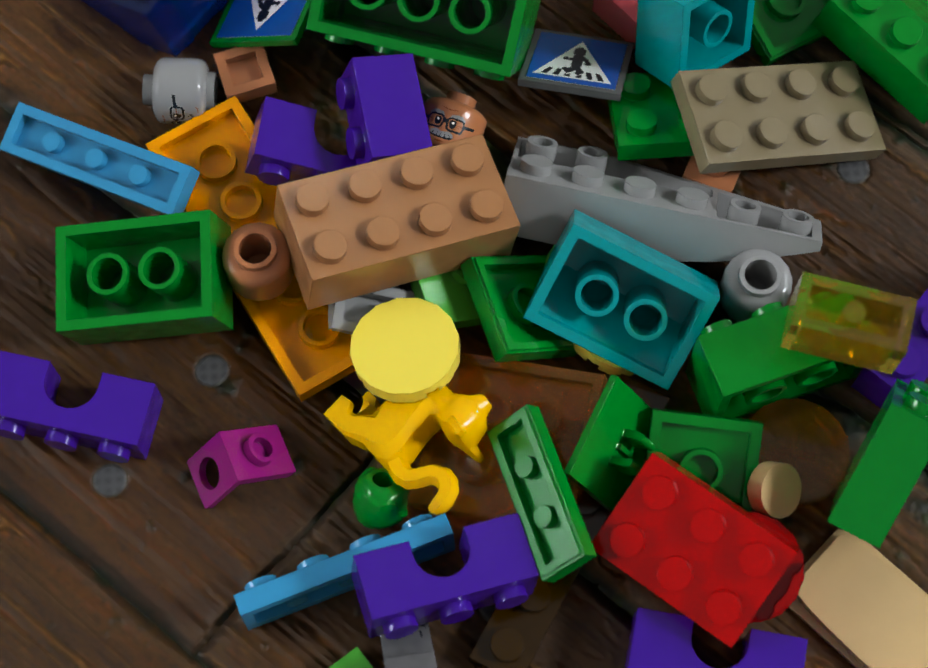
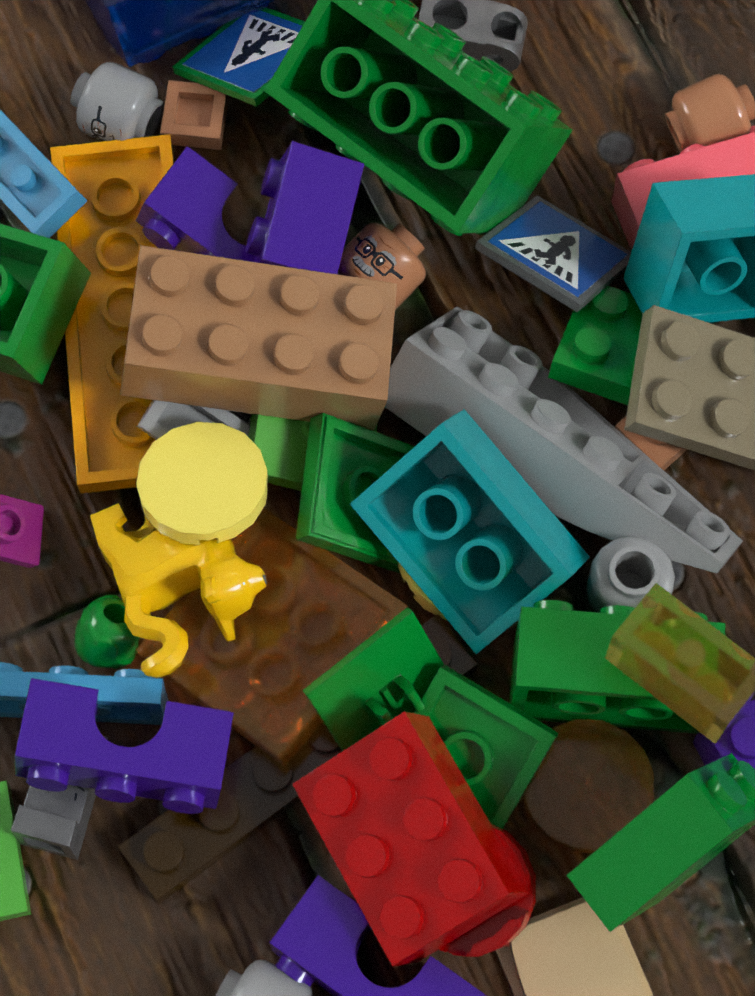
camera: 25 degrees right, 0 degrees up
(257, 261) = (93, 321): nougat head -> none
(541, 494) = (268, 703): green tile -> none
(774, 489) = (536, 815): tan tile -> none

